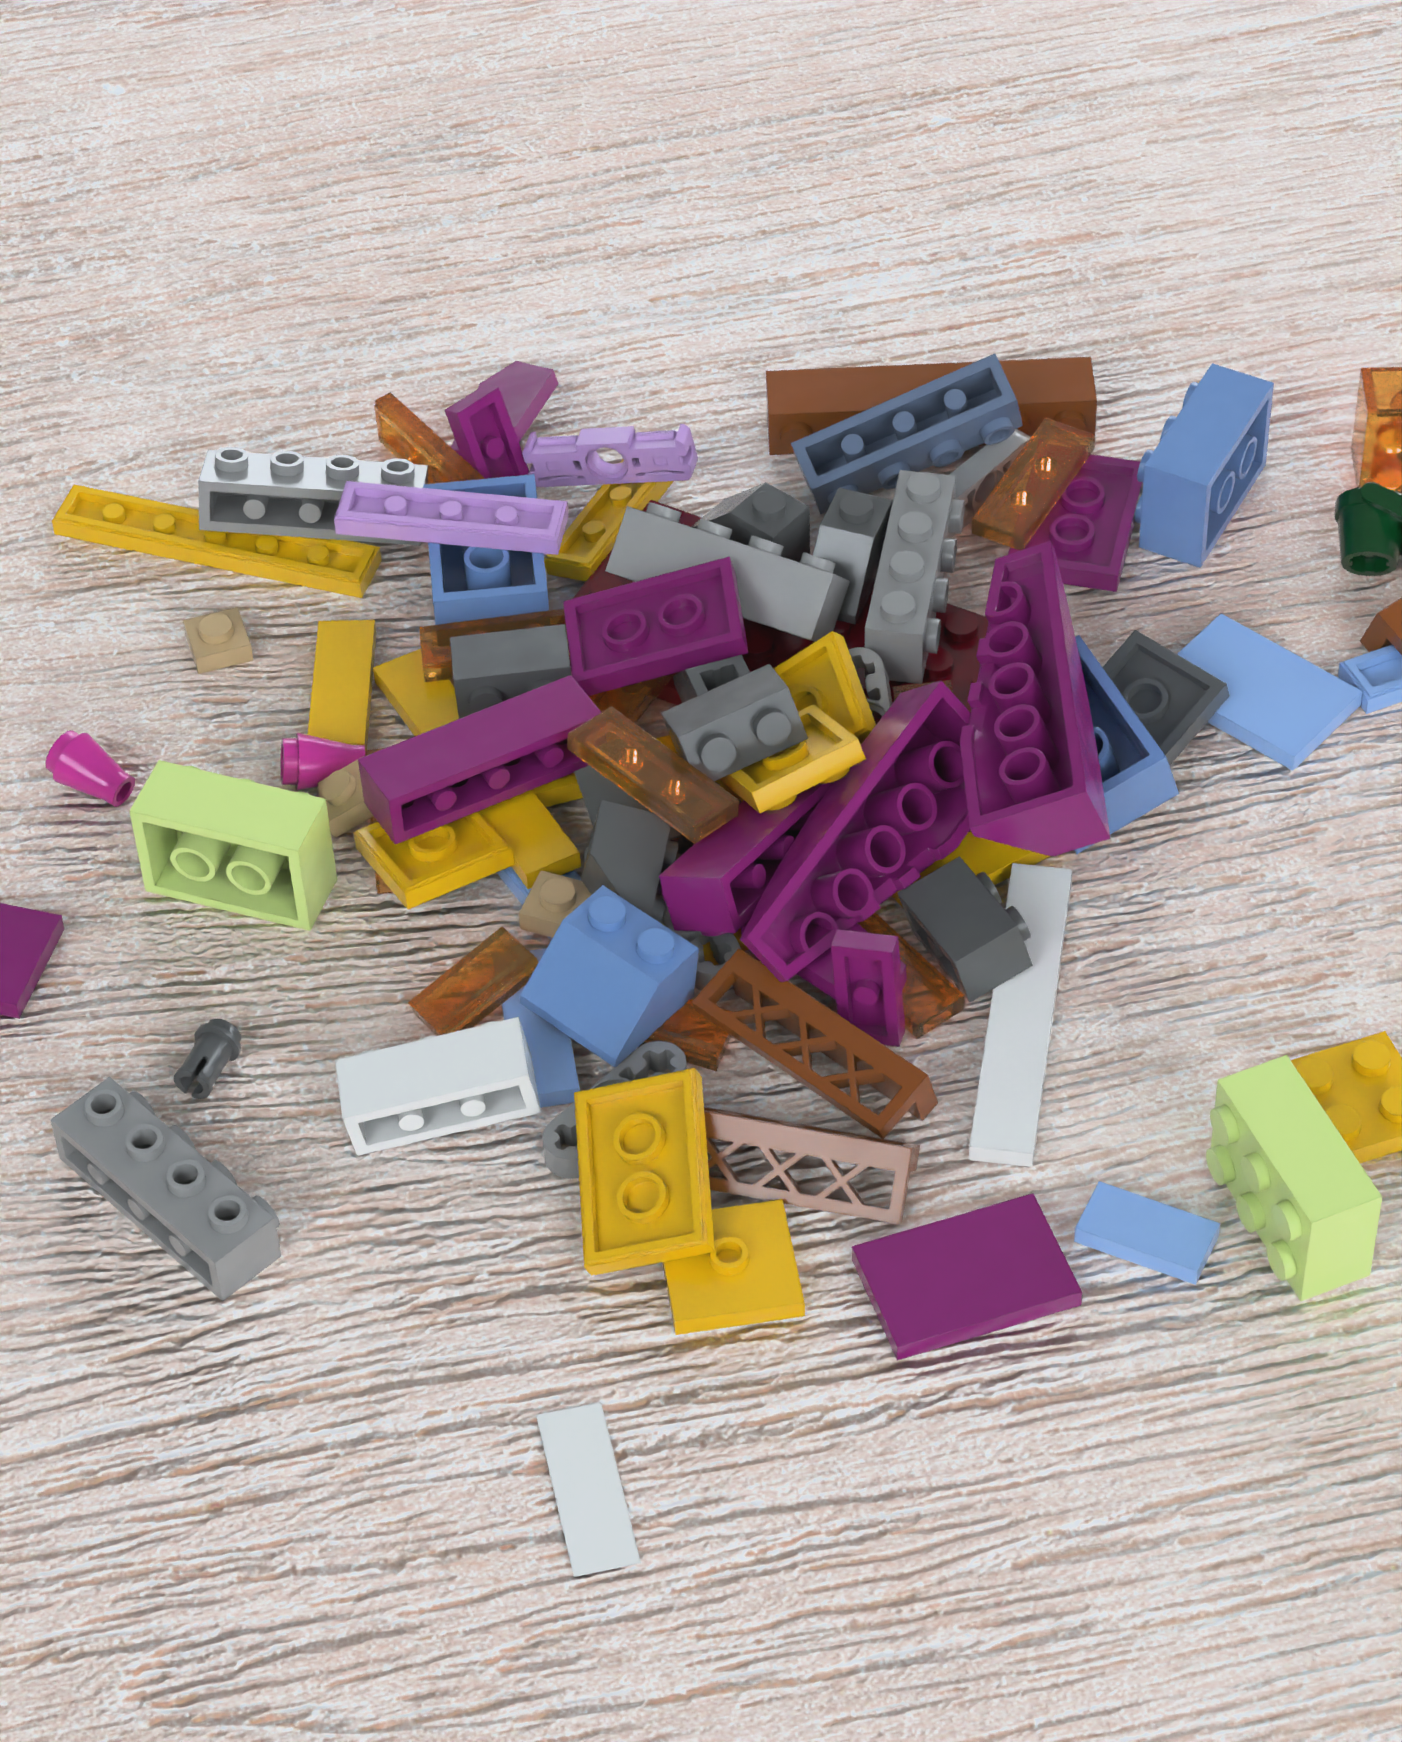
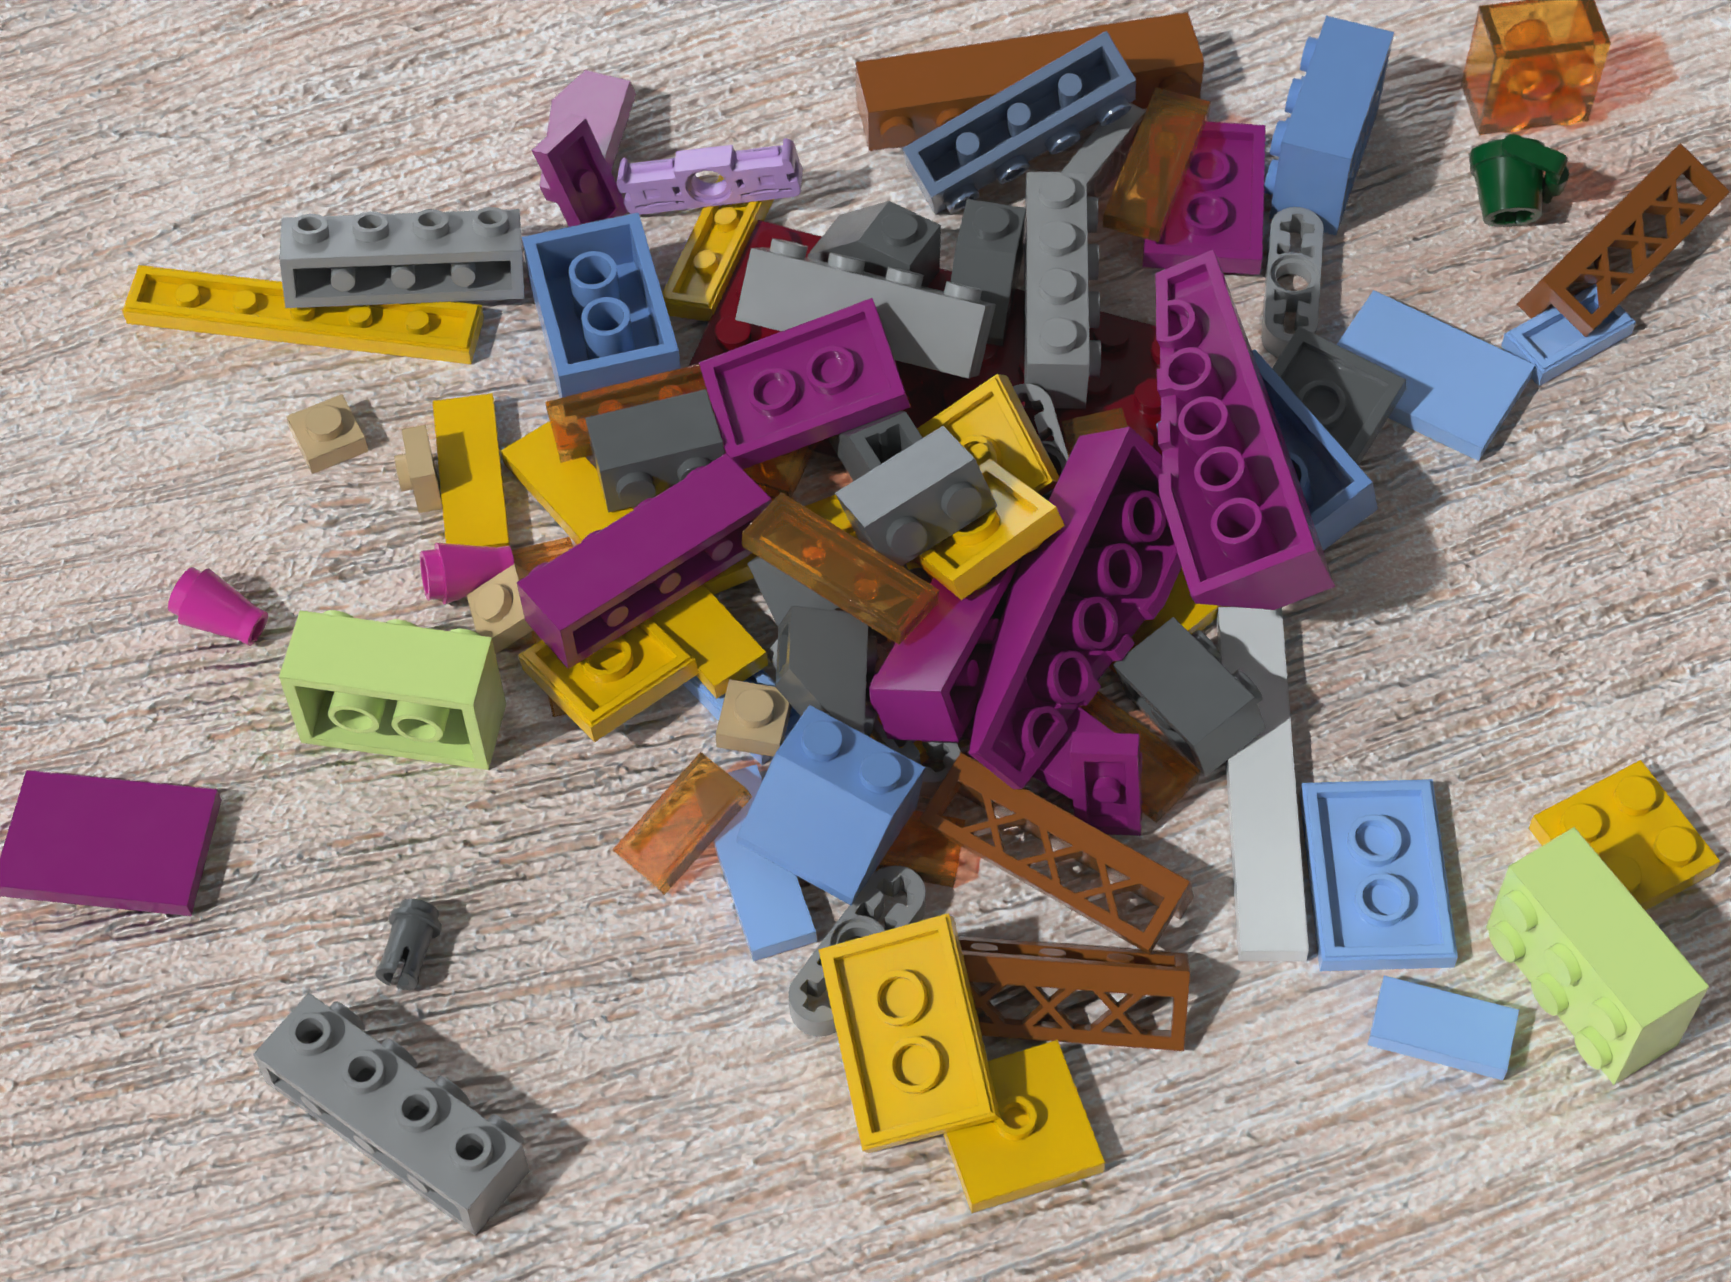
camera: 10 degrees left, 10 degrees up
(294, 675) = (417, 469): none -> tan plate
(414, 441) = (507, 186): clear orange tile -> none
(437, 1086) = (665, 953): white brick -> none
(451, 517) = (560, 275): lavender tile -> none
(966, 1276) = (1265, 1105): magenta tile -> none
(1114, 1102) = (1377, 875): none -> light blue tile
(1140, 582) = (1304, 264): none -> light grey beam

